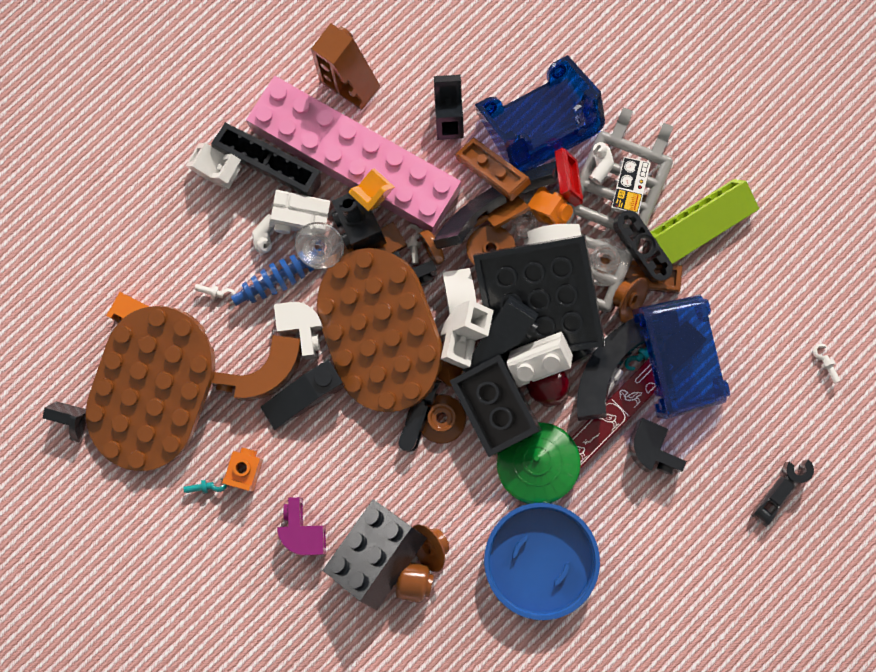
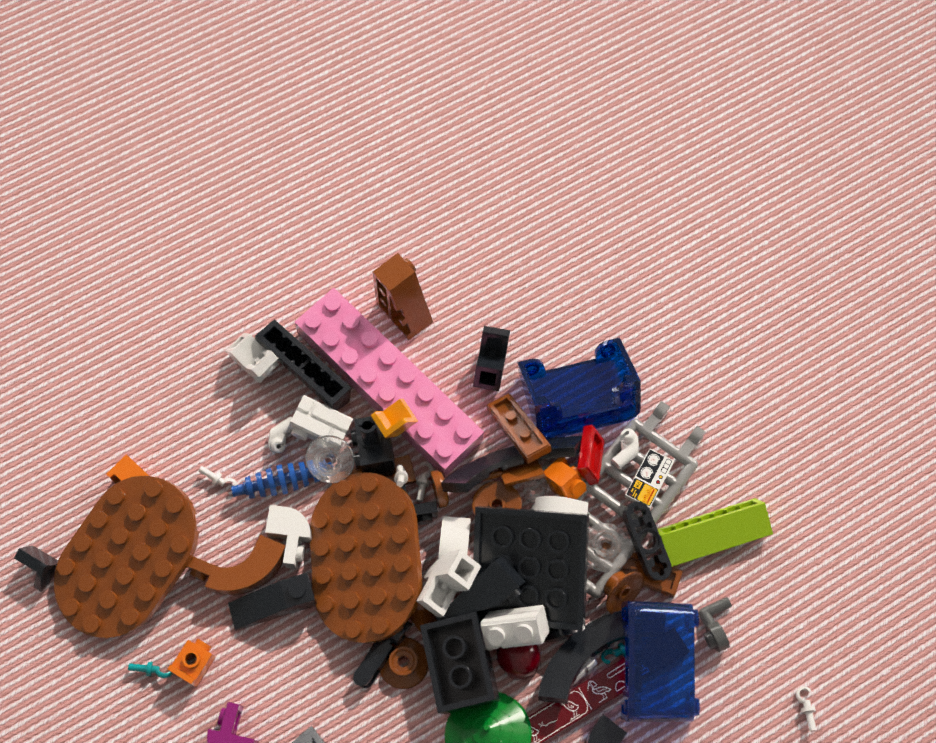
camera: 10 degrees right, 10 degrees down
(392, 244) = (401, 476): none -> white hand
(727, 318) = (715, 635): none -> dark grey plate

